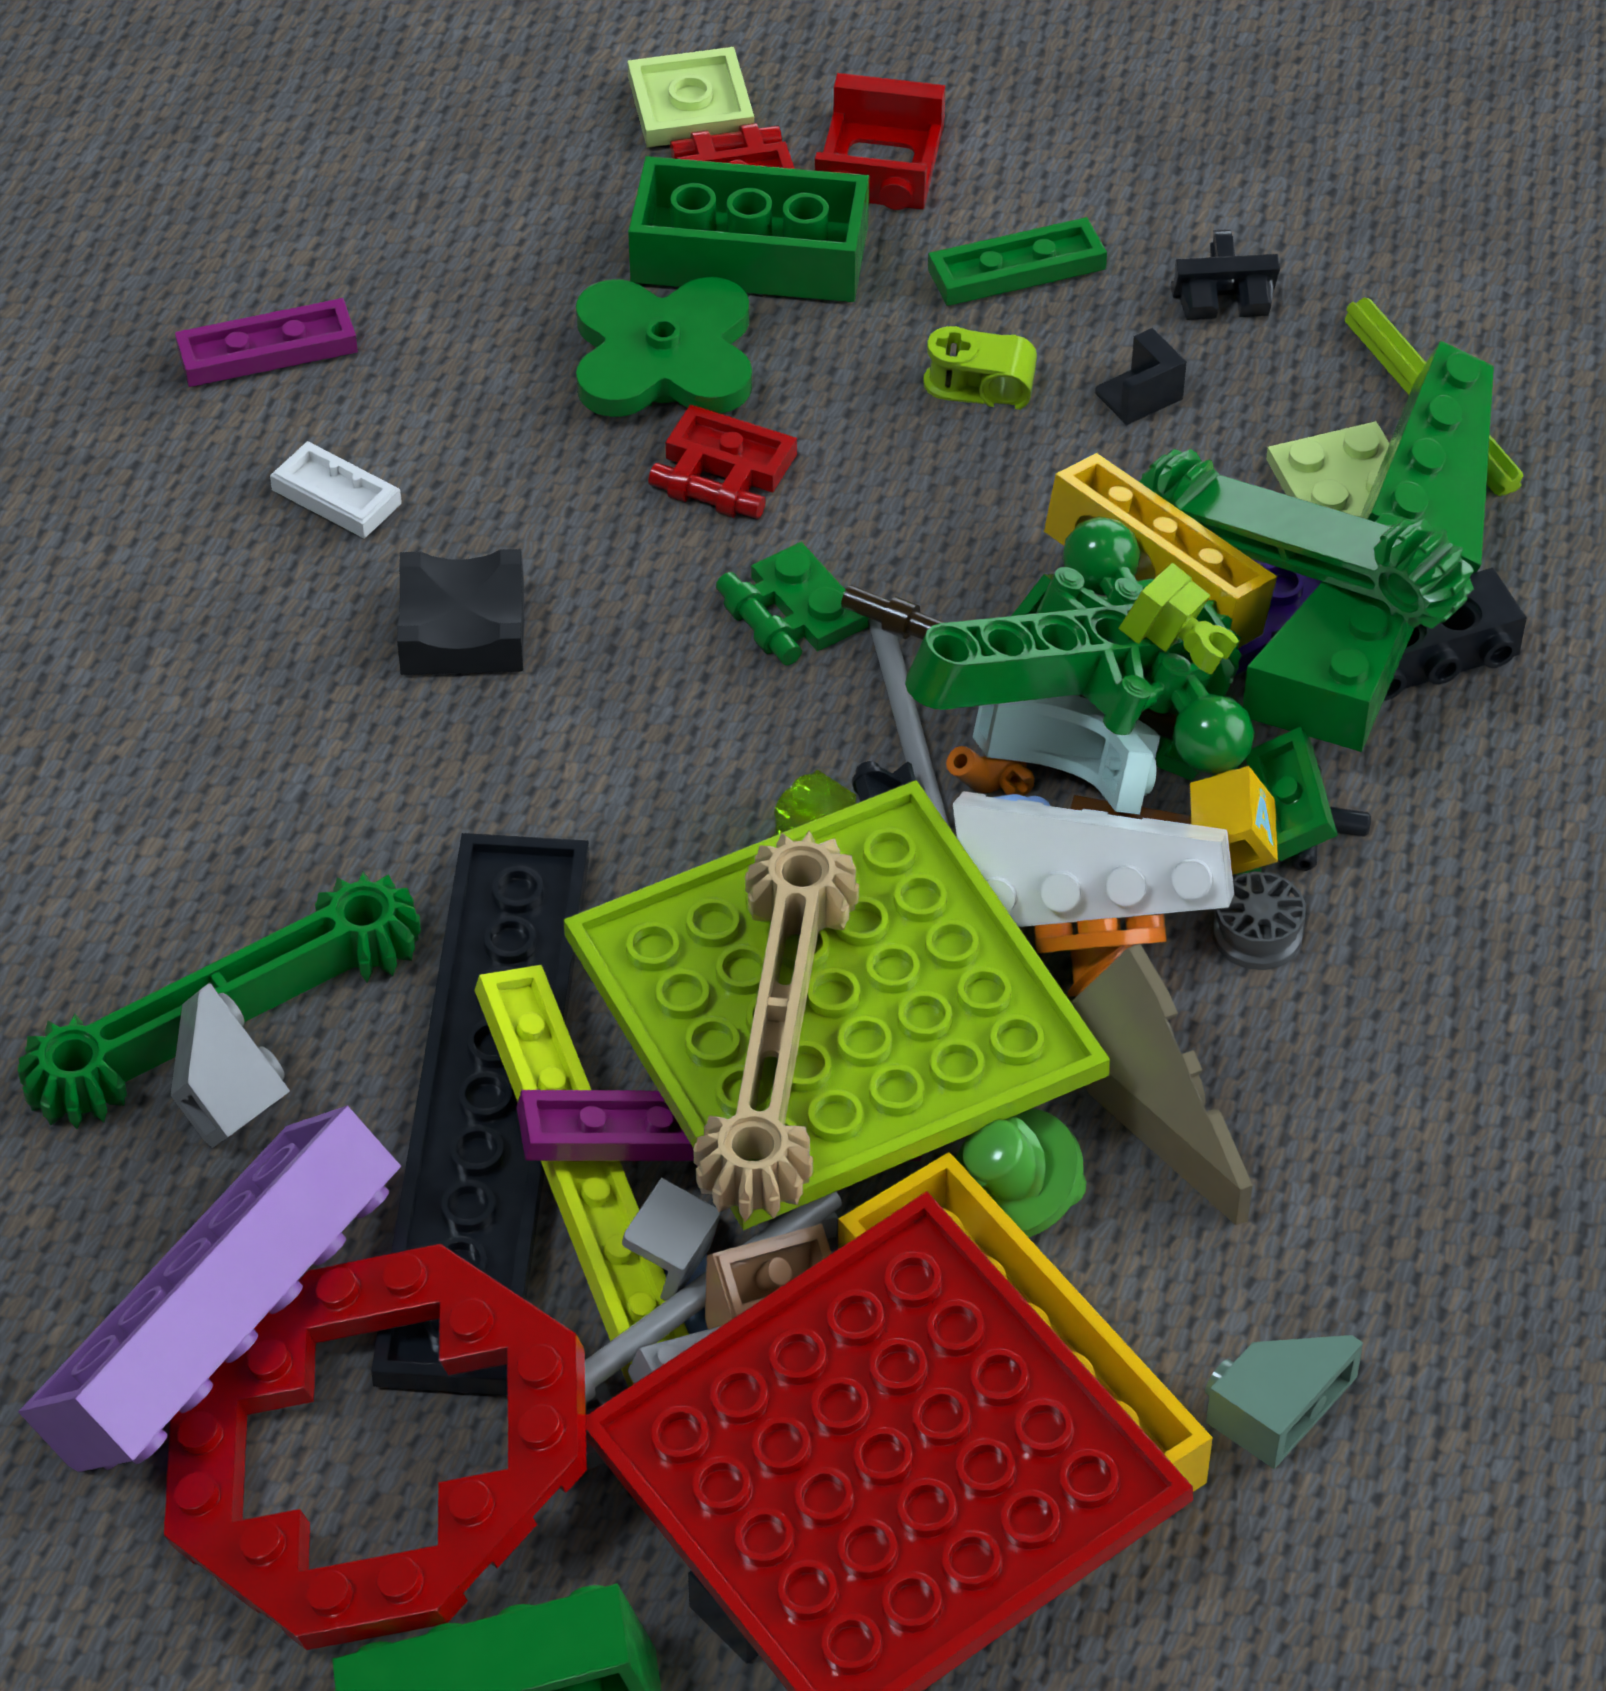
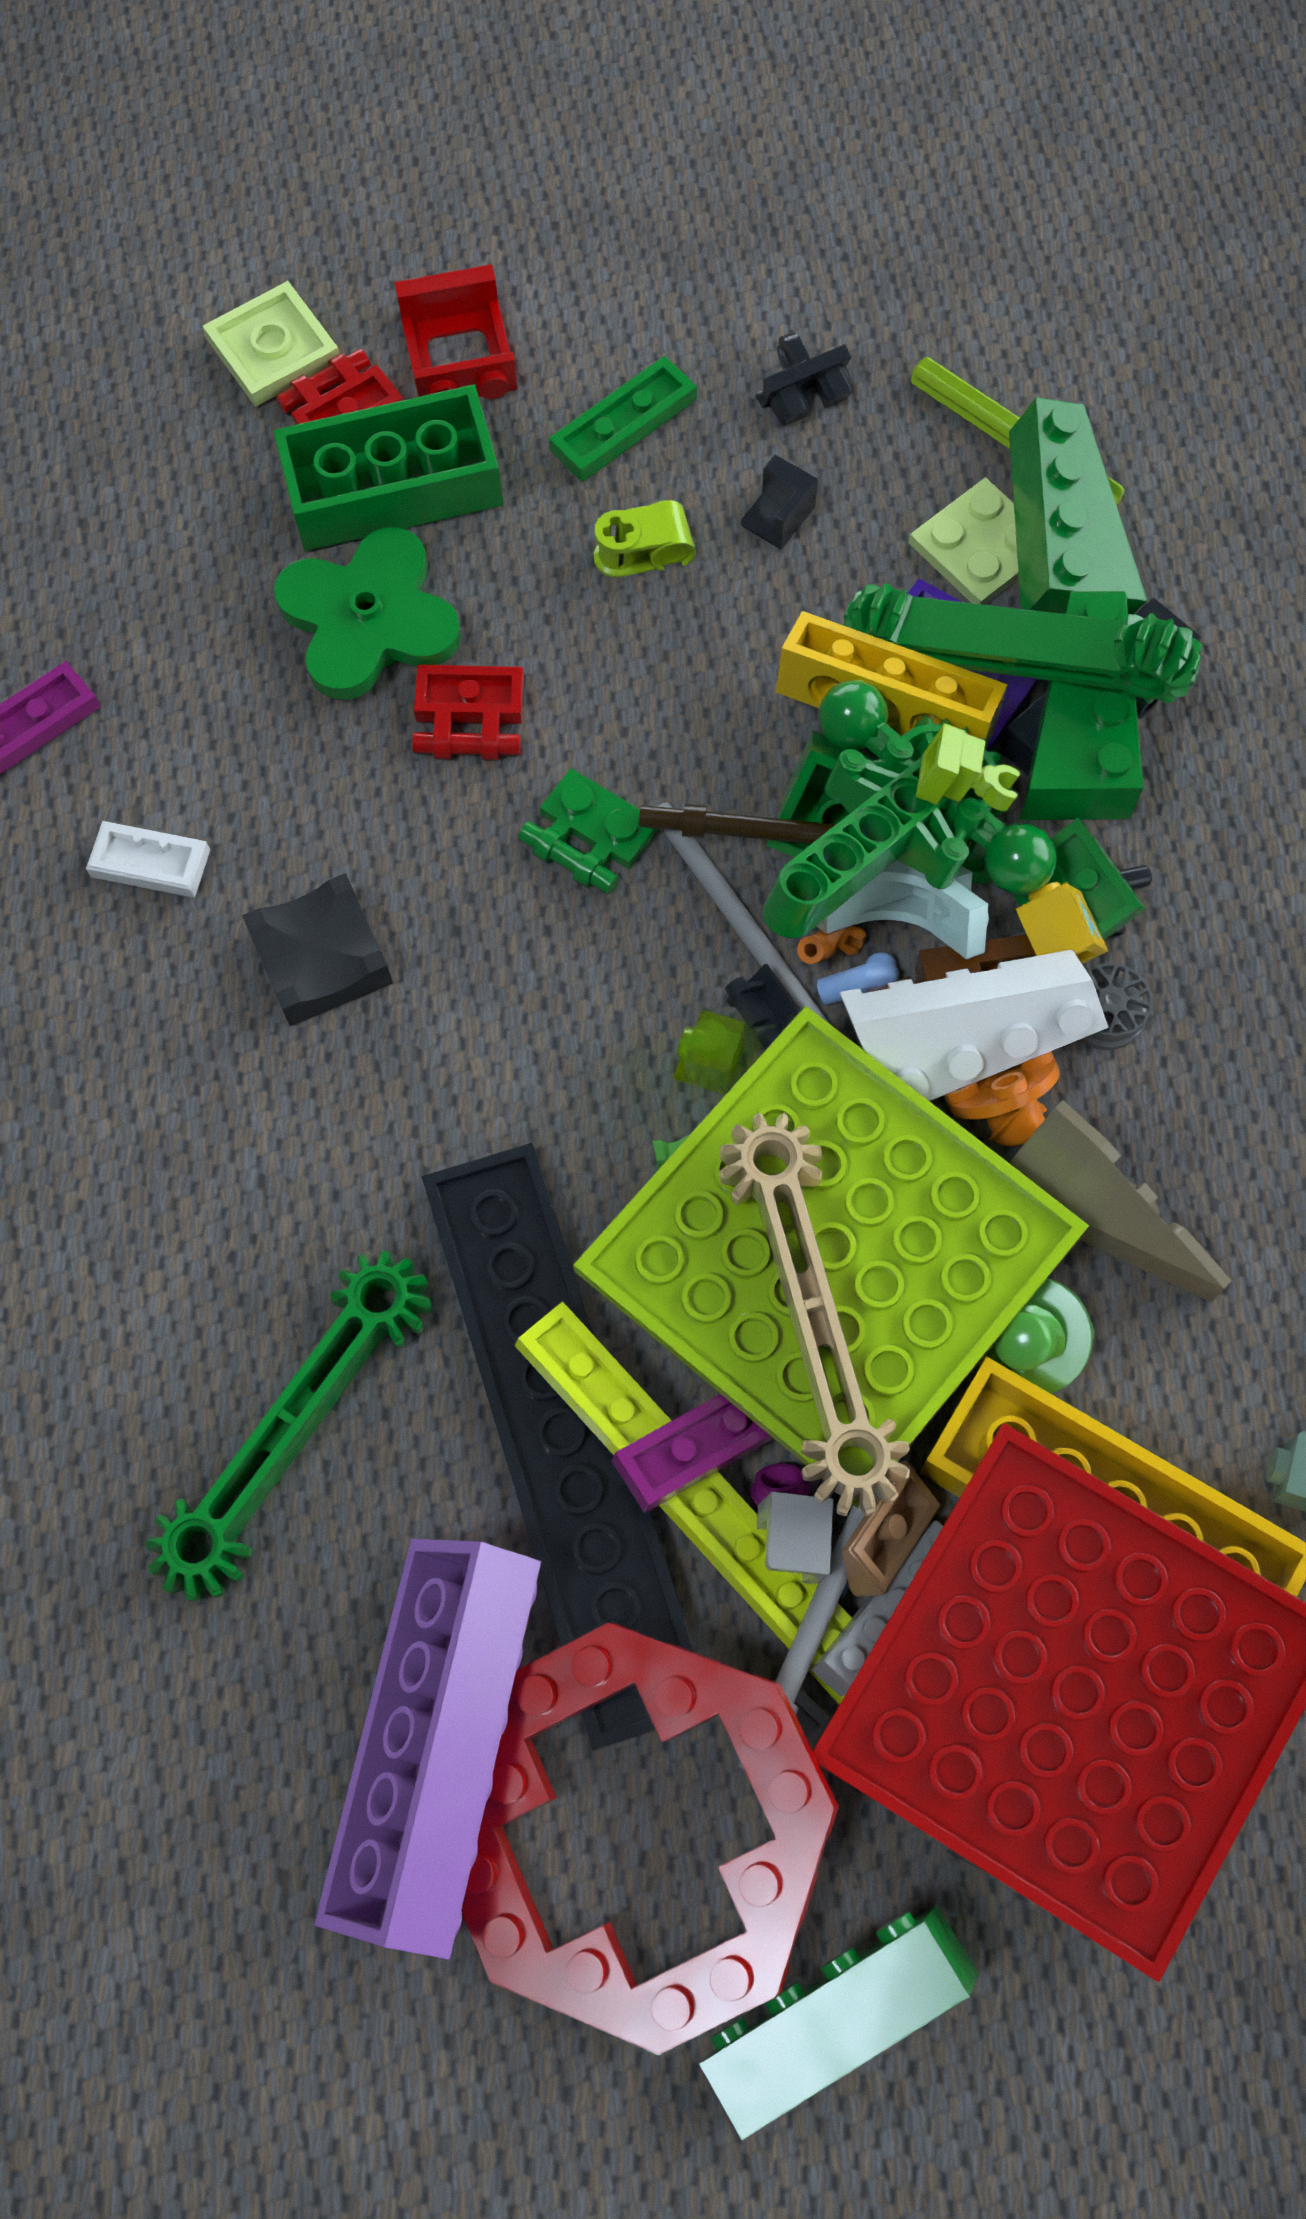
camera: 20 degrees left, 20 degrees up
(219, 1070) = (330, 1511): light grey slope -> none

